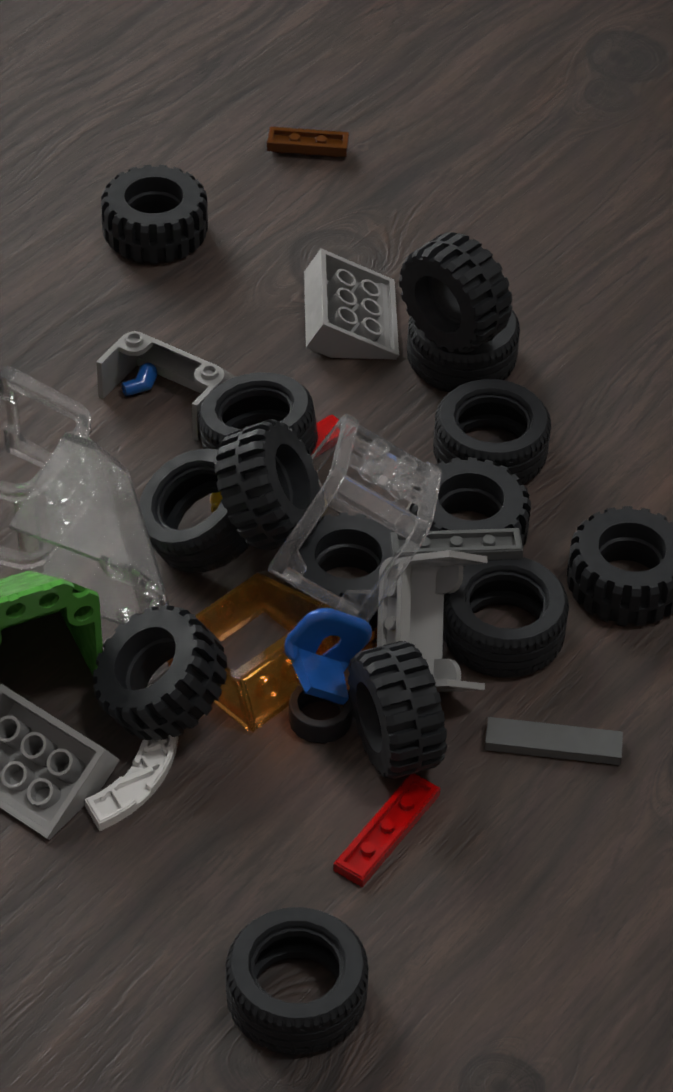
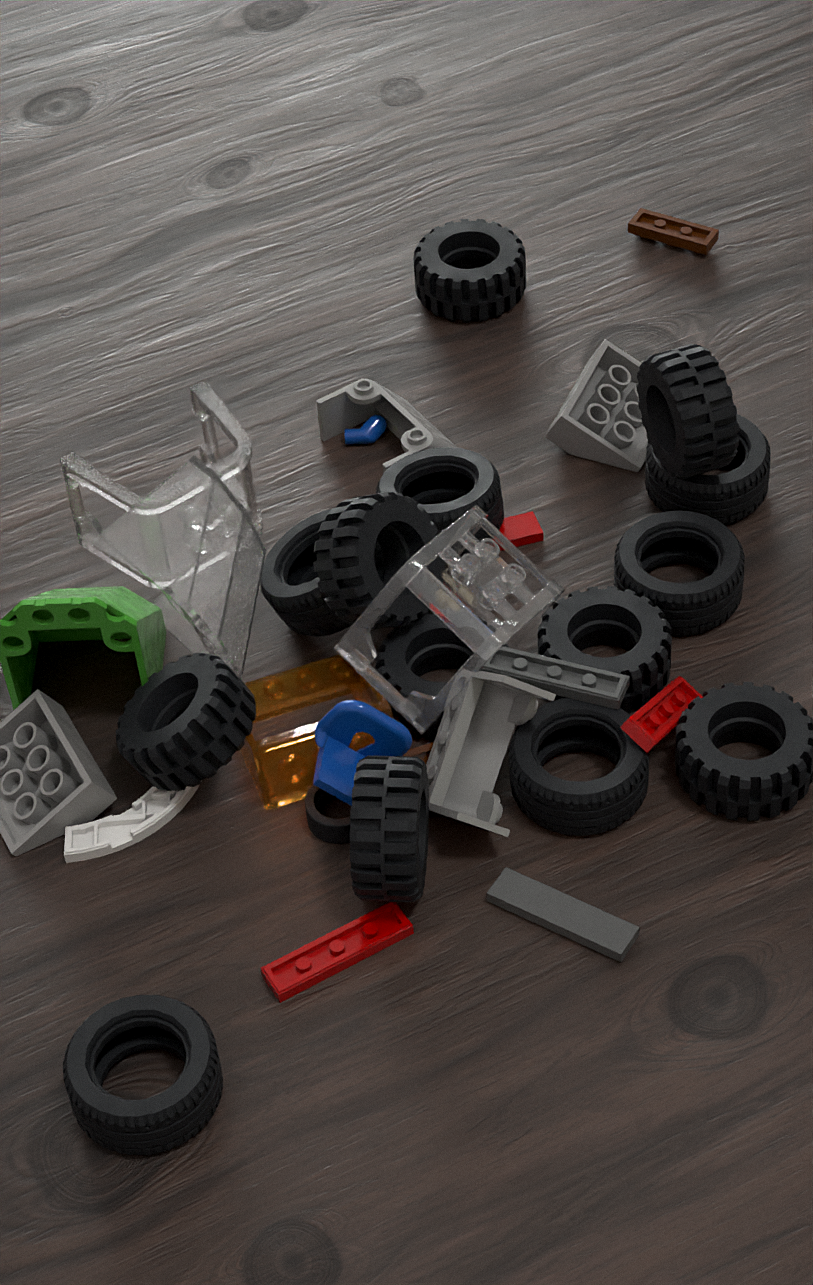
camera: 30 degrees right, 0 degrees up
(552, 553) = (660, 714): none -> red tile

